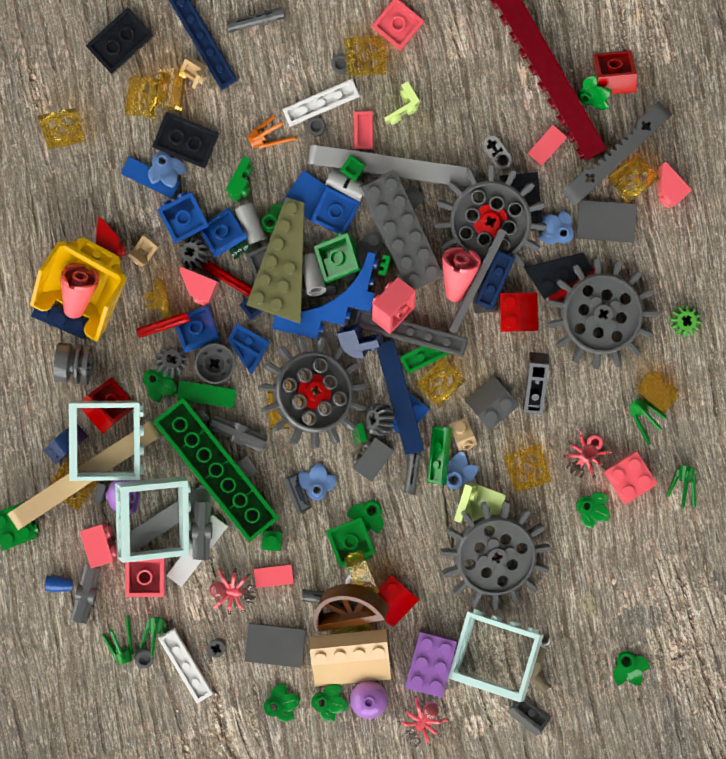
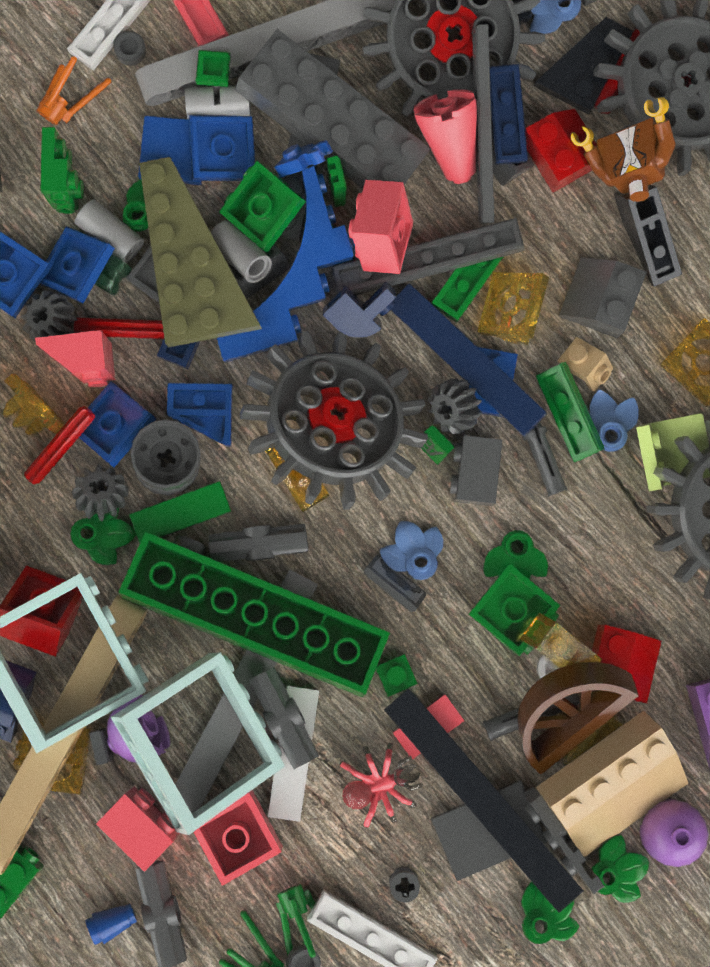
camera: 35 degrees left, 5 degrees down
(280, 628) = (483, 800): none -> black tile
(306, 667) = (556, 837): none -> dark grey wing
(369, 244) = (298, 158): none -> blue plate
(545, 340) = (633, 155): none -> dark orange torso

